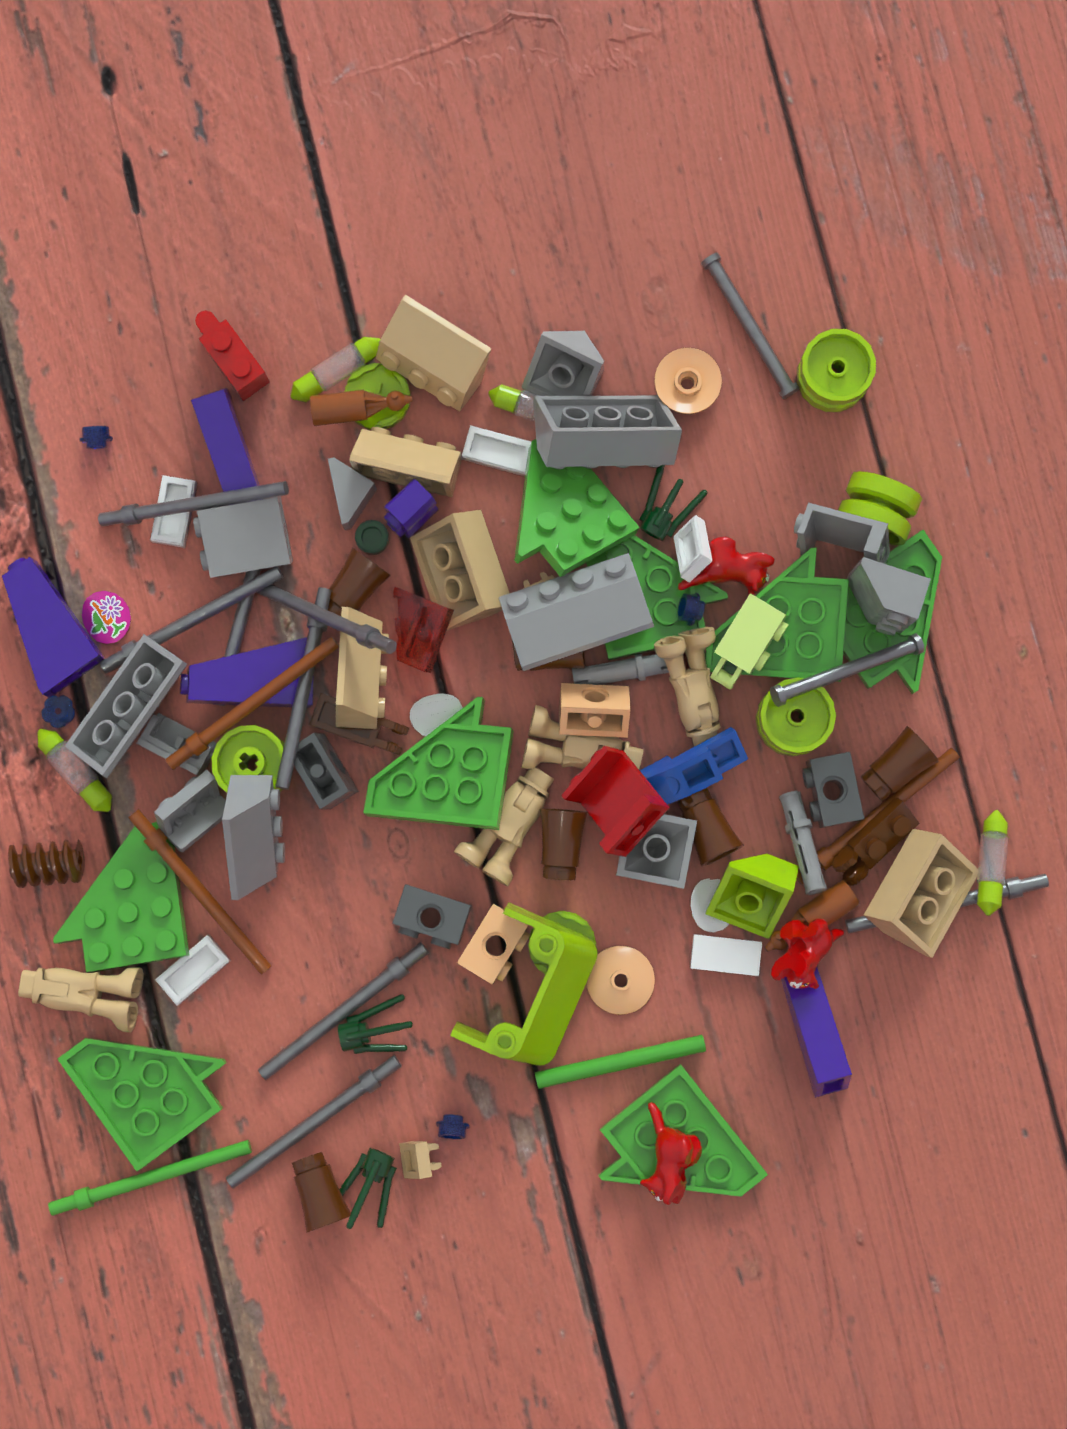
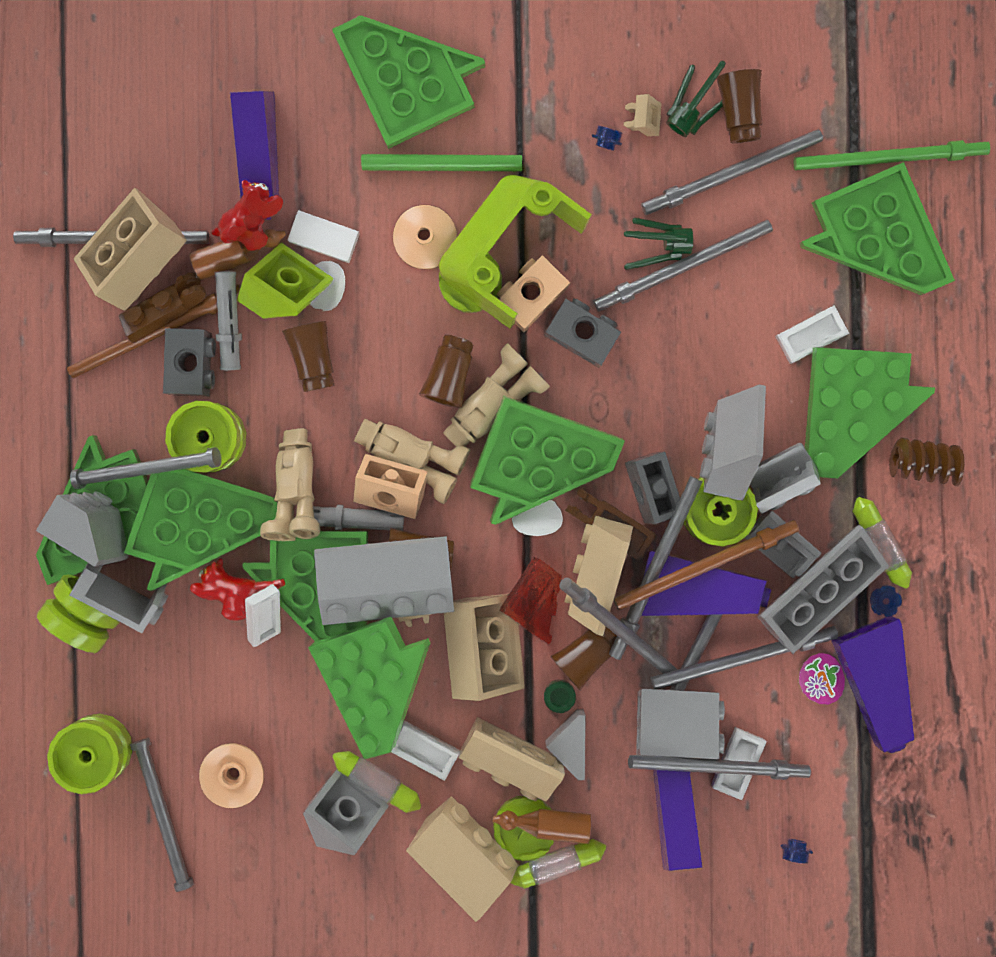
camera: 175 degrees left, 5 degrees up
(82, 992) = (918, 335): tan piece -> none
(156, 841) = (822, 458): dark orange bar -> none
(230, 355) = (653, 900): red brick -> none
(410, 509) = (518, 714): dark purple brick -> none
(605, 431) = (318, 745): light grey slope -> none
(617, 799) = (387, 396): red panel -> none
(658, 522) = (290, 648): dark green plant -> none
(662, 853) = (363, 345): light grey slope -> none
(674, 1154) = (411, 62): red animal -> none
(690, 608) = (278, 560): plate -> none
(696, 767) = (326, 405): blue slope -> none
(748, 640) = (230, 517): yellowish green brick -> none
(899, 764) = (122, 372): reddish brown plant -> none
(992, 863) = (59, 262): piece -> none

